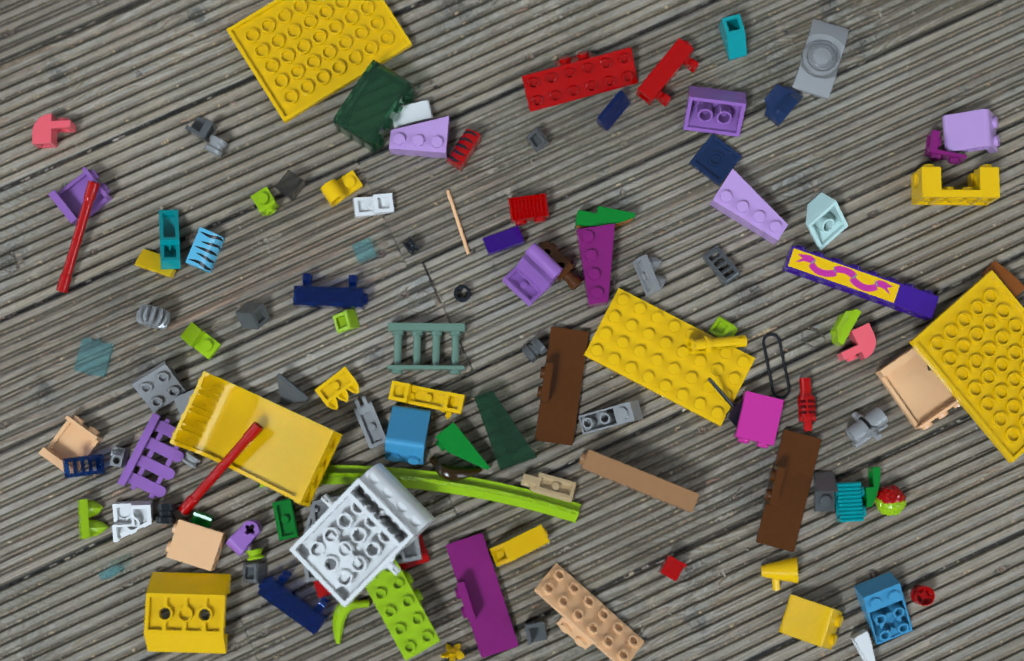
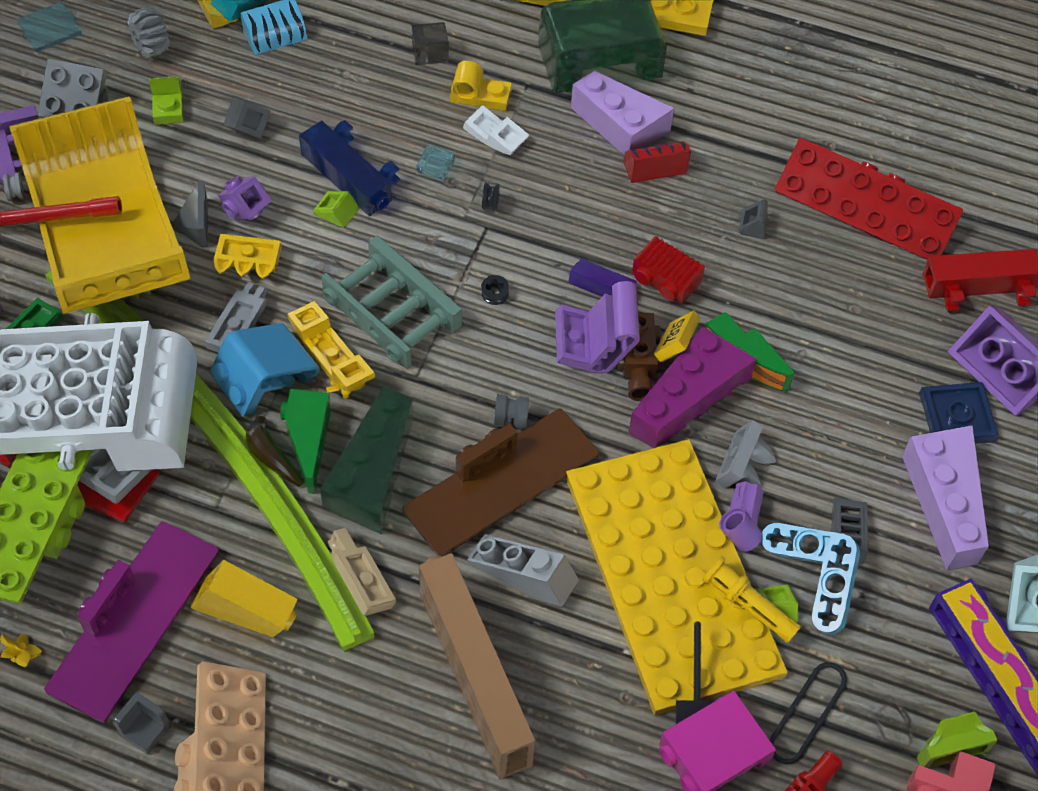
camera: 40 degrees right, 25 degrees down
(265, 202) = (386, 39): lime bracket -> none
(305, 361) = (243, 198): none -> medium lavender brick
(413, 113) = (639, 82): white slope -> none
(458, 222) = (570, 224): light nougat axle -> none
(568, 242) = (677, 336): none -> yellow tile
(613, 111) = (876, 261): clear blue slope -> none
(675, 303) = (741, 520): none -> medium lavender piece
(726, 291) = (823, 555): none -> medium azure beam

